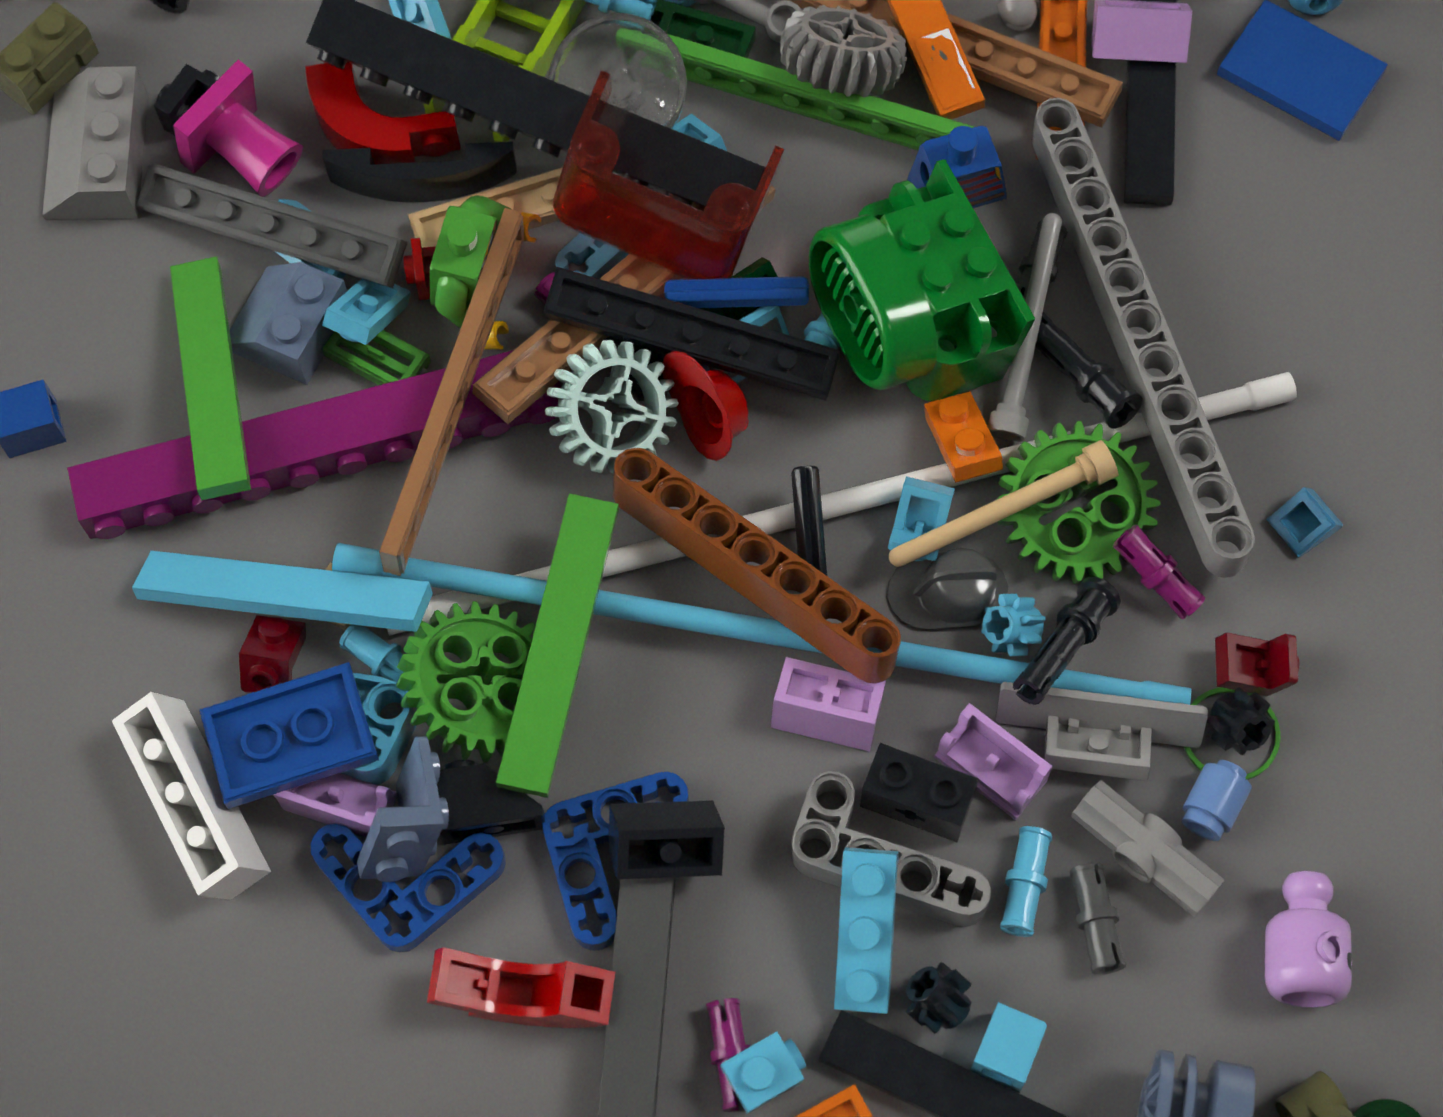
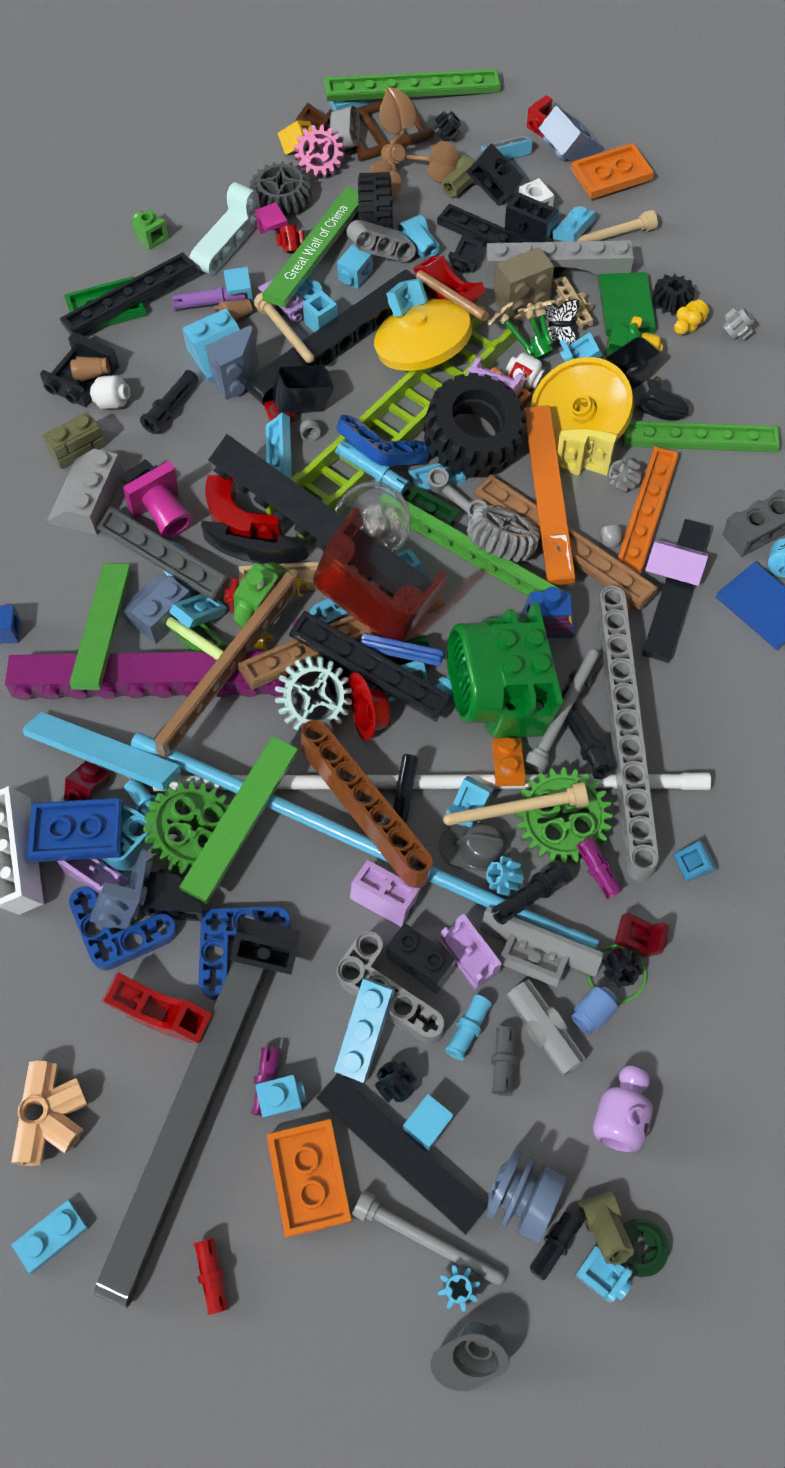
camera: 15 degrees right, 5 degrees down
(381, 360) = (194, 638): none -> yellowish green bar

